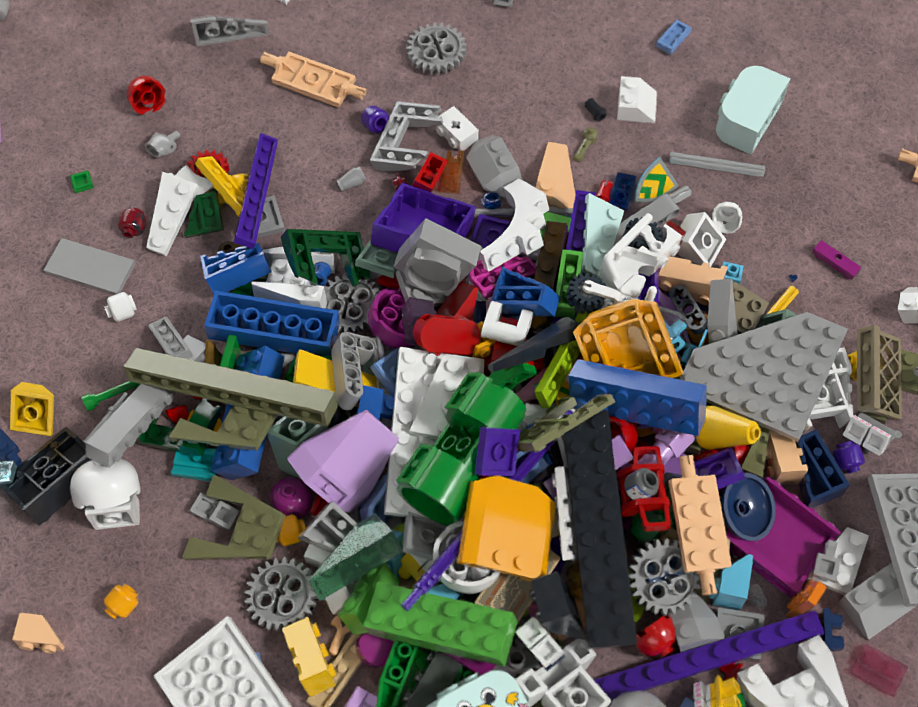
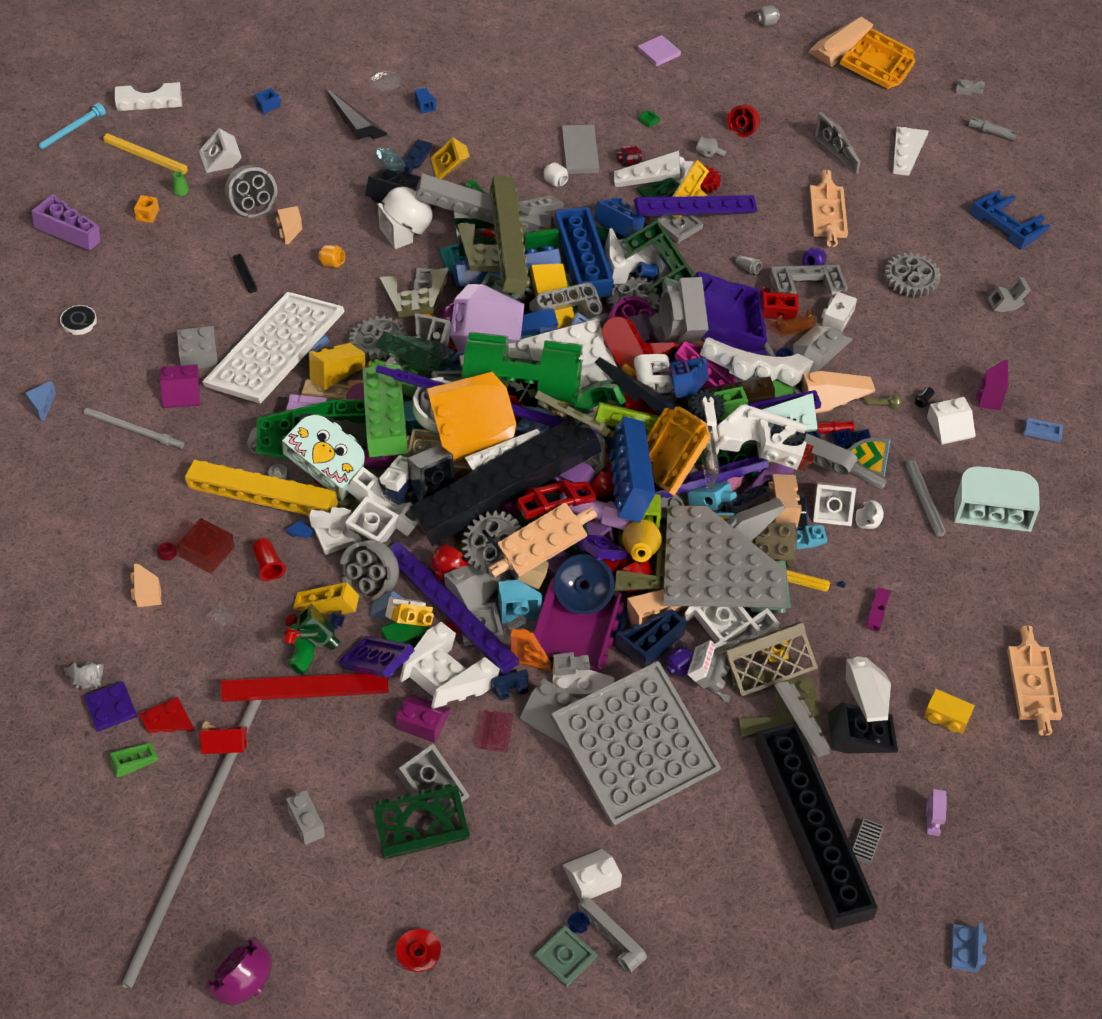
camera: 65 degrees right, 10 degrees down
(497, 451) = (524, 379): dark purple plate -> none
(615, 46) = (993, 386): none -> magenta slope
(641, 484) = (559, 488): dark grey head -> none

